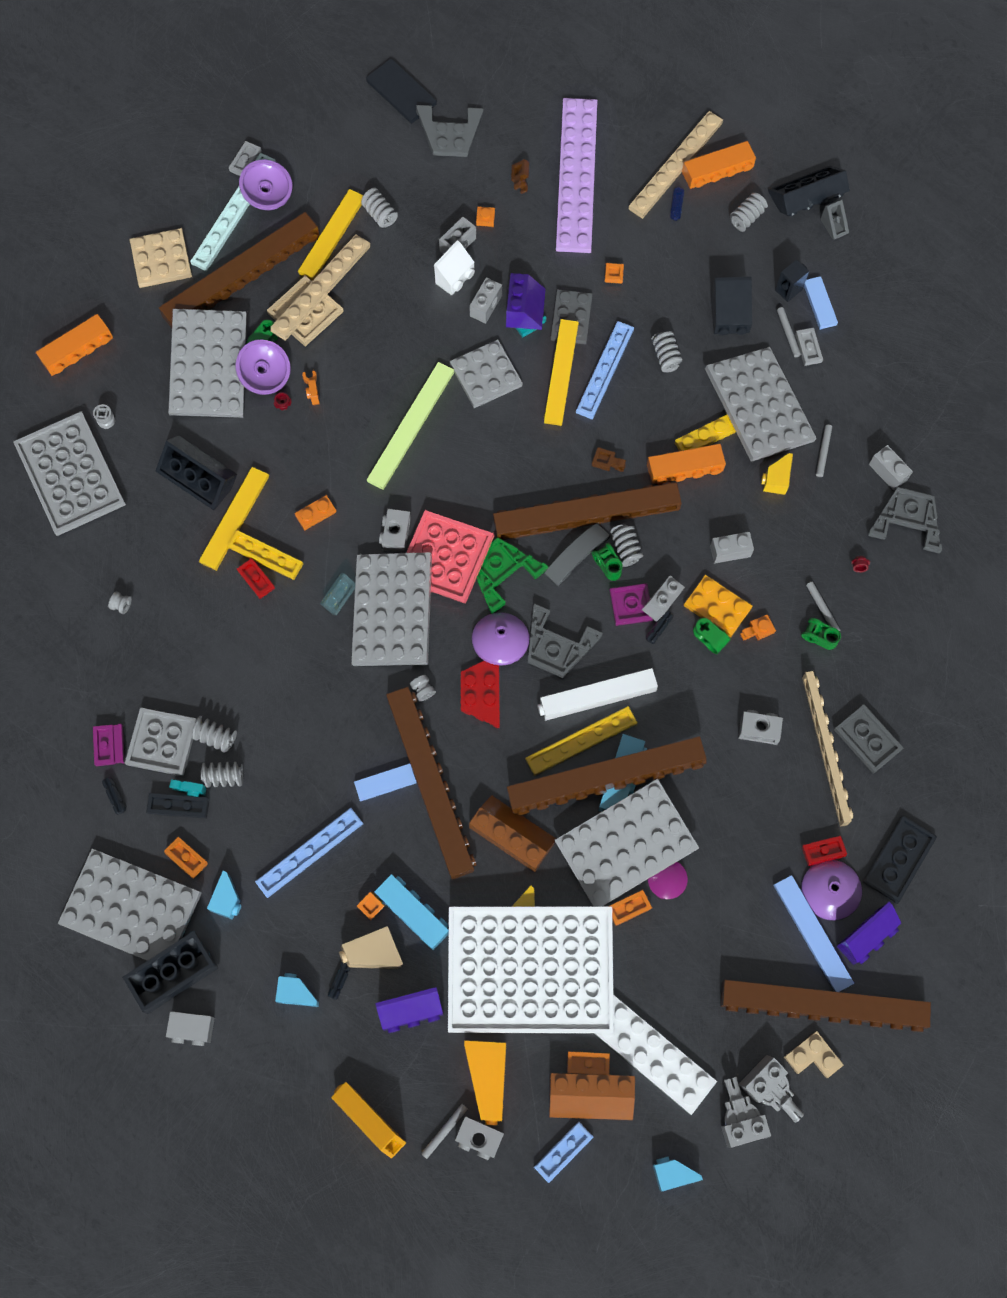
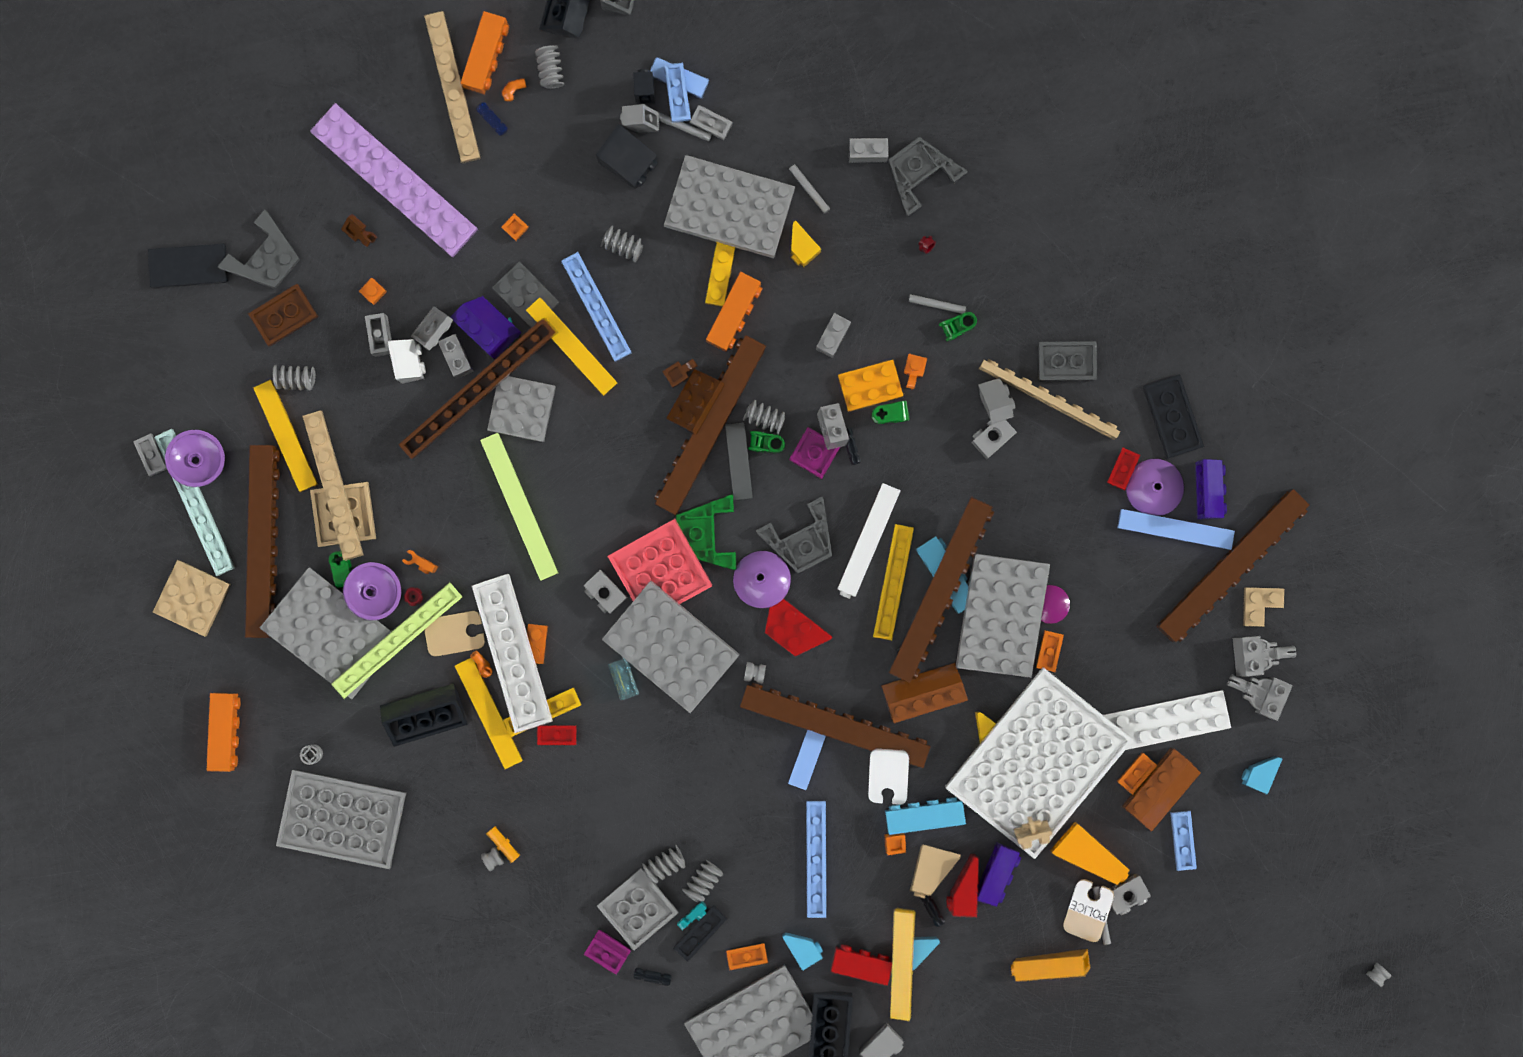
camera: 50 degrees left, 15 degrees up
(137, 602) = (503, 844): none -> light orange pin
(238, 410) = (396, 640): none -> yellowish green tile
(248, 956) = (861, 964): none -> red brick
(268, 487) = (482, 664): none -> orange arm
(272, 448) = (449, 634): none -> tan piece
(273, 987) = (902, 964): none -> yellow tile
(293, 498) = (512, 653): none -> white plate
(372, 991) = (964, 892): none -> red slope
(418, 171) = (283, 315): none -> reddish brown plate
(427, 853) = (890, 771): none -> white piece
(433, 1115) = (1088, 916): none -> piece
(470, 1007) = (1032, 831): none -> tan hips
(476, 328) = (478, 388): none -> reddish brown brick
(500, 269) = (432, 328): none -> light grey plate
(595, 485) = (695, 401): none -> reddish brown plate
(712, 200) = (511, 87): none -> orange arm
(767, 293) = (640, 118): none -> light grey brick
(791, 705) = (996, 400): none -> light grey brick
(808, 307) = (677, 92): none -> light blue tile

